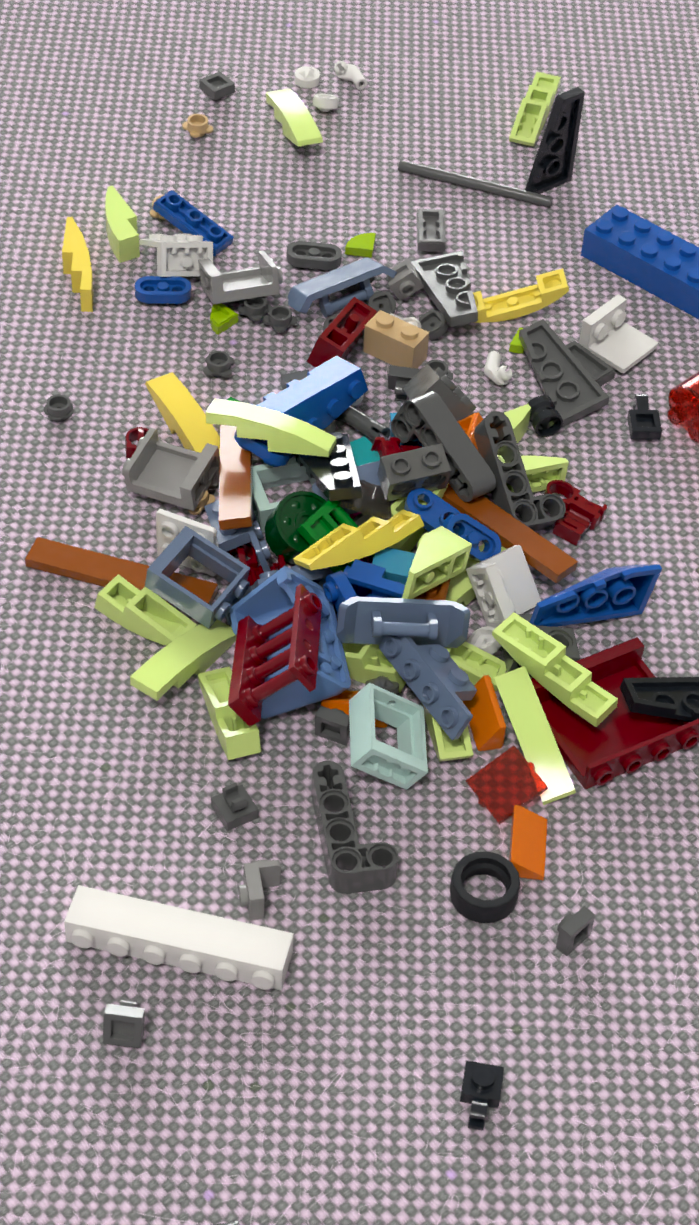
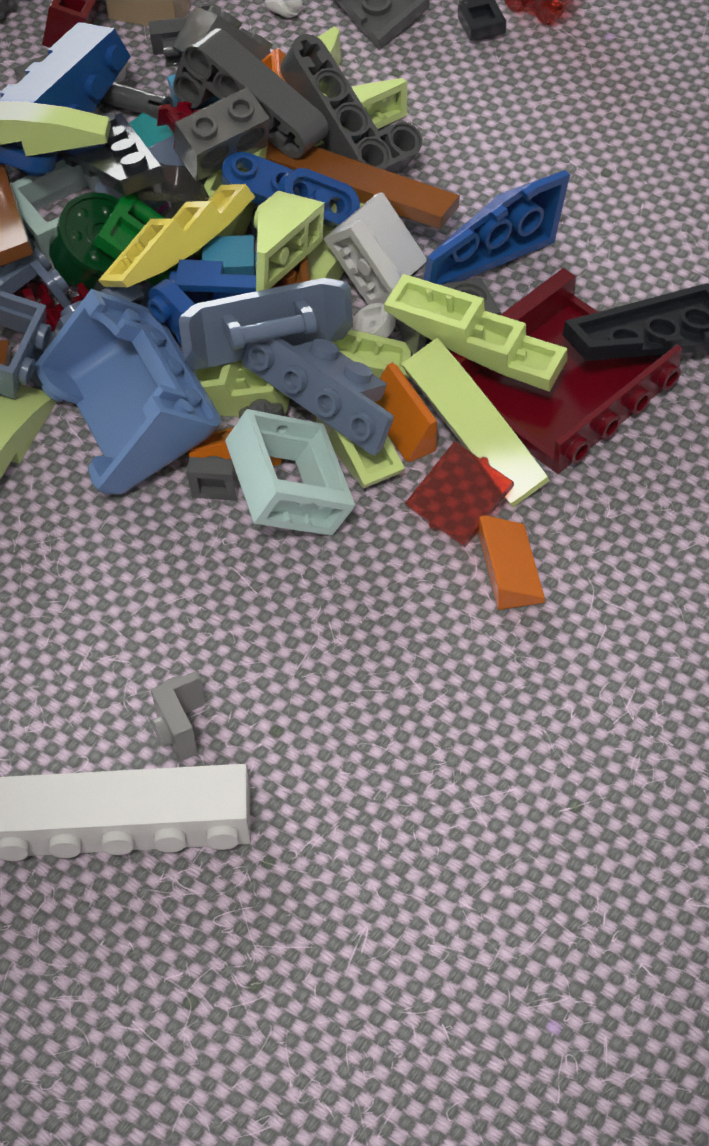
camera: 10 degrees left, 5 degrees up
(124, 1024) = (51, 952): dark grey tile -> none
(233, 733) = (73, 499): yellowish green slope -> none
(234, 806) = (115, 618): dark grey tile -> none
(253, 648) = (80, 407): dark red fence -> none
(337, 822) = (263, 604): dark grey beam -> none
(481, 1089) = (557, 899): black plate -> none
(484, 910) = (474, 601): black tyre -> none
(544, 417) = (358, 38): black wheel -> none
(574, 930) = (608, 655): dark grey plate -> none
(578, 512) = (439, 142): dark red piece -> none

